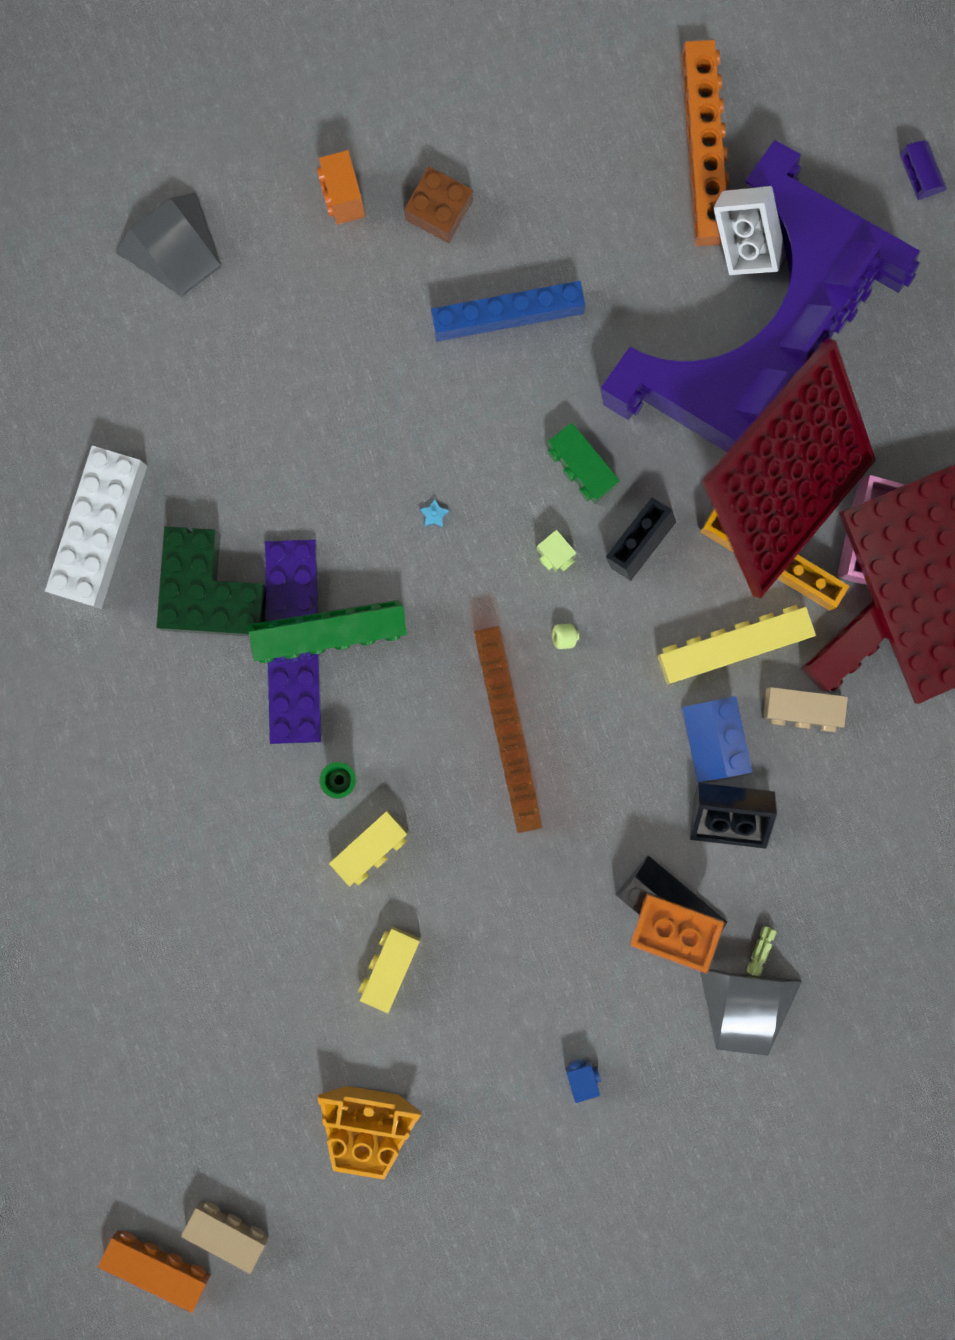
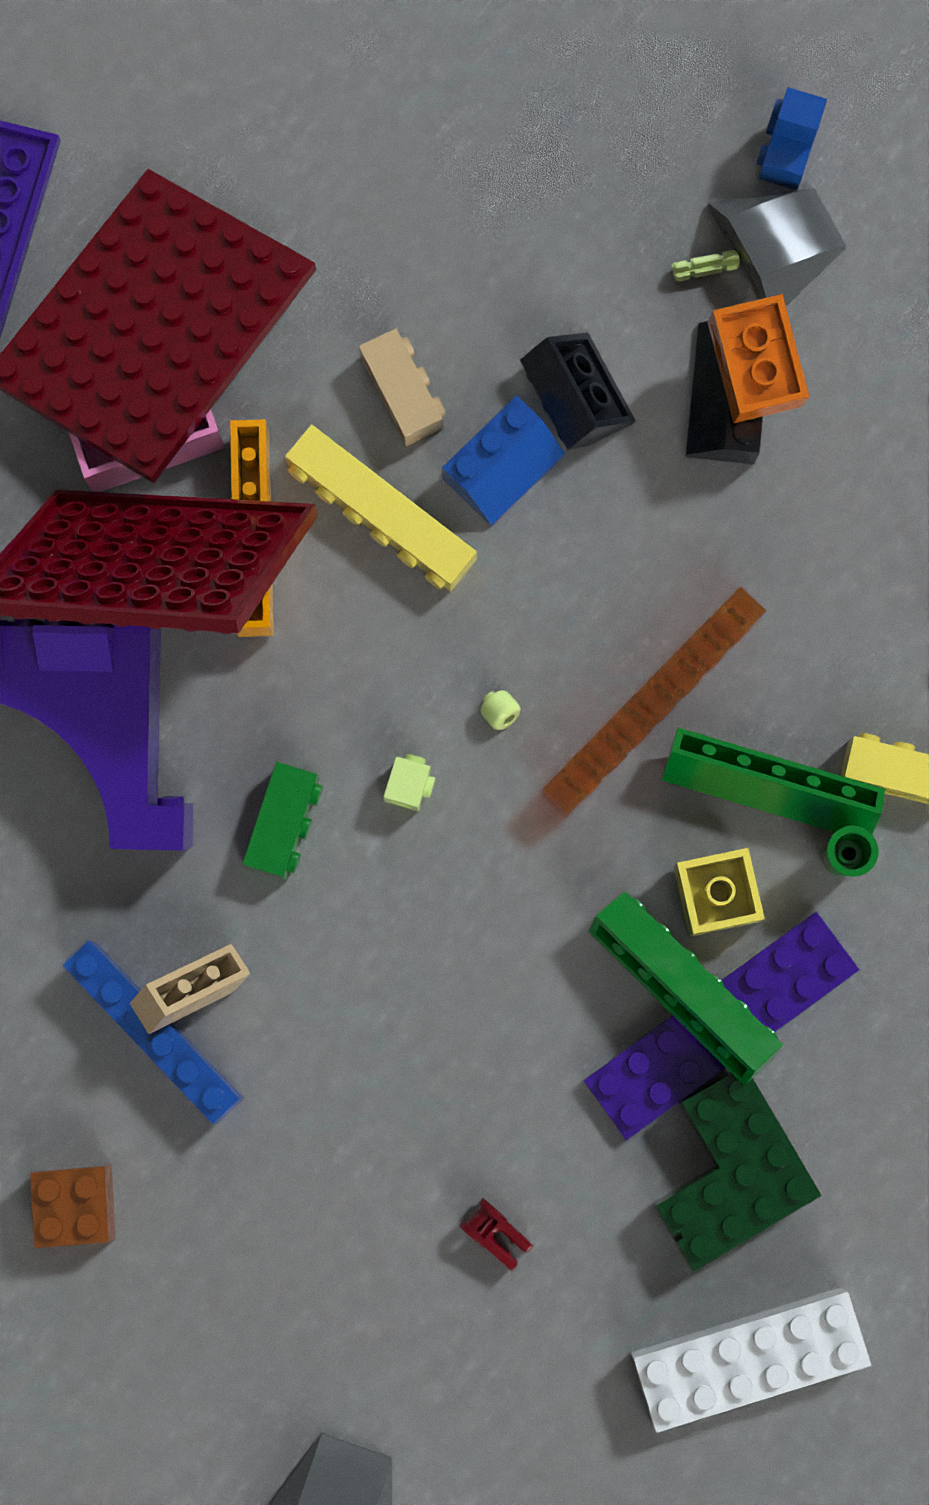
camera: 125 degrees left, 5 degrees down
(272, 431) = (493, 1224): none -> dark red piece
(340, 187) = (132, 1336): orange brick -> none
(369, 689) = (718, 892): none -> light yellow brick
(410, 766) = (771, 783): none -> green brick
(434, 514) = (457, 959): medium azure piece -> none
(517, 343) = (189, 988): none -> tan brick
(641, 539) = (328, 693): black brick -> none
(813, 1066) = (792, 133): none -> blue brick
(846, 650) = (302, 383): dark red brick -> none

